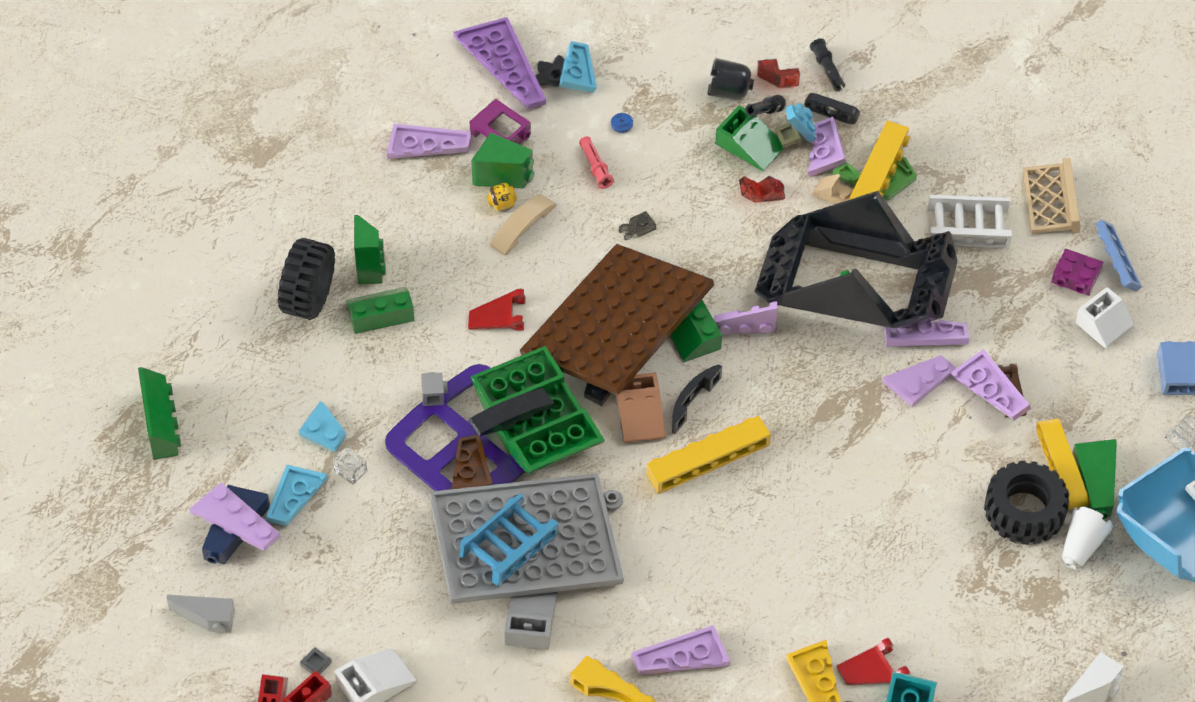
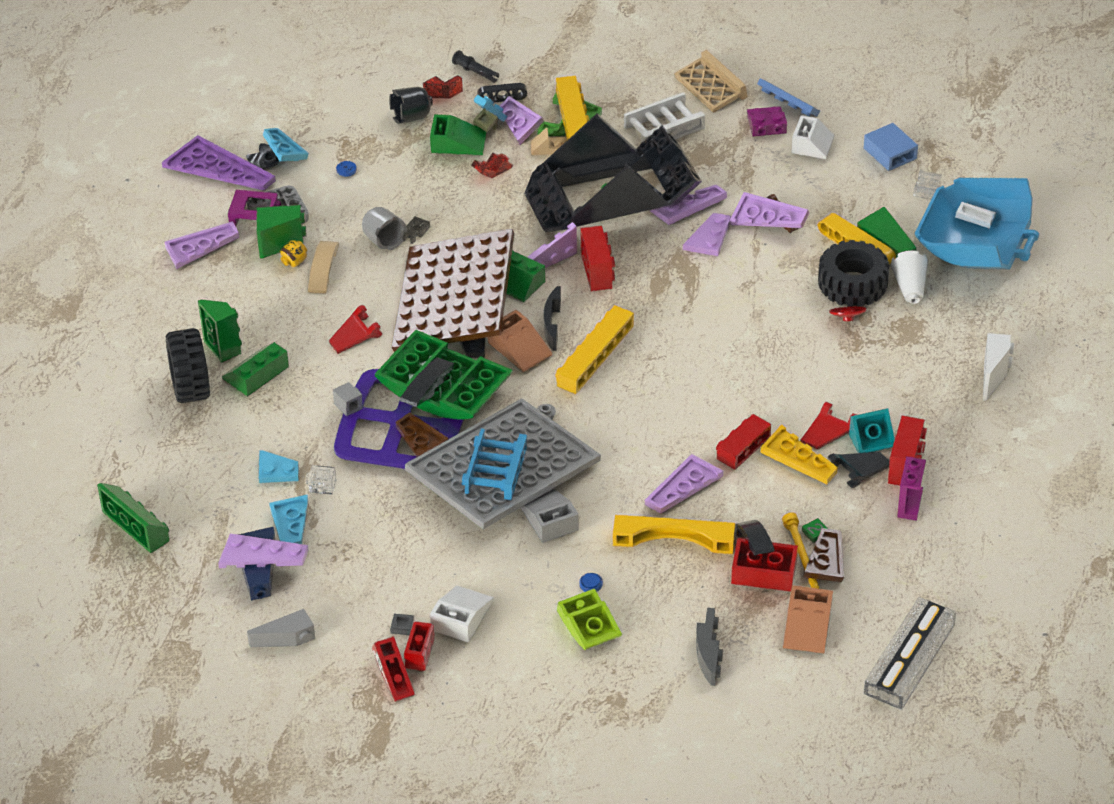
camera: 30 degrees left, 10 degrees down
(540, 131) = (288, 196): none -> light grey beam
(598, 168) = (354, 204): coral pin -> none
(602, 211) = (383, 228): none -> light grey cylinder
(768, 105) = (451, 108): black pin -> none
(775, 638) = (743, 441): none -> red brick
(780, 352) = (597, 258): none -> red brick
(990, 542) = (847, 313): none -> red dish

